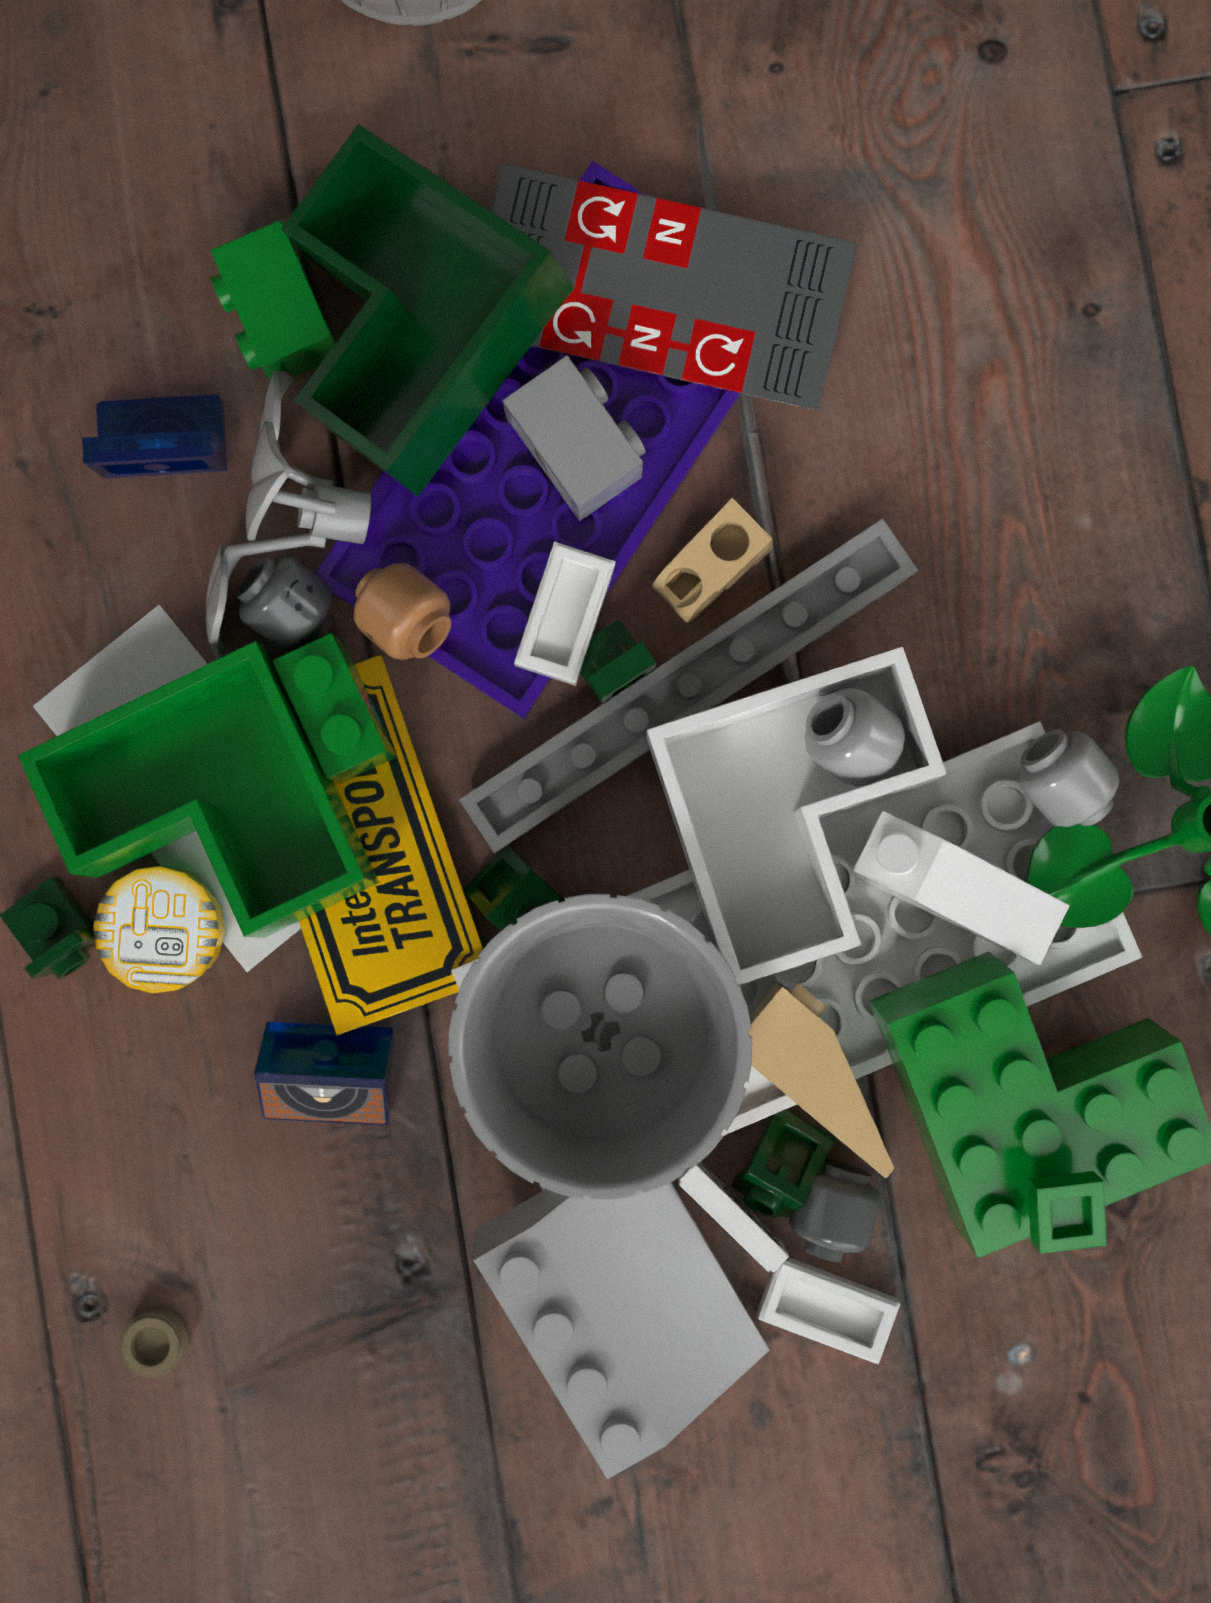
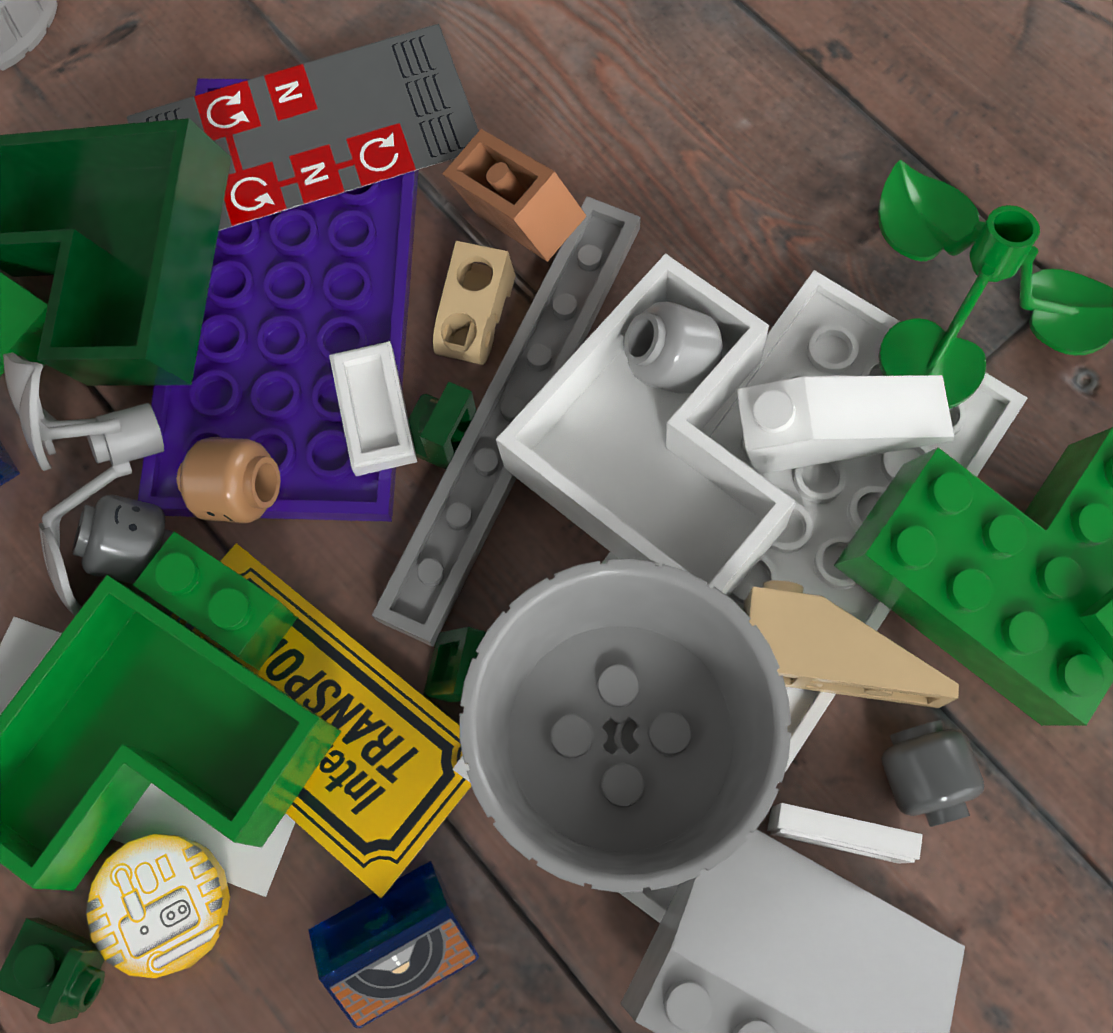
camera: 30 degrees left, 15 degrees down
(575, 437) = (298, 266): light grey brick -> none
(783, 1166) = (860, 763): dark green bracket -> none
(812, 484) = (515, 194): none -> nougat brick
(828, 1309) = (989, 872): white tile -> none
(1068, 778) = (868, 288): light grey head -> none

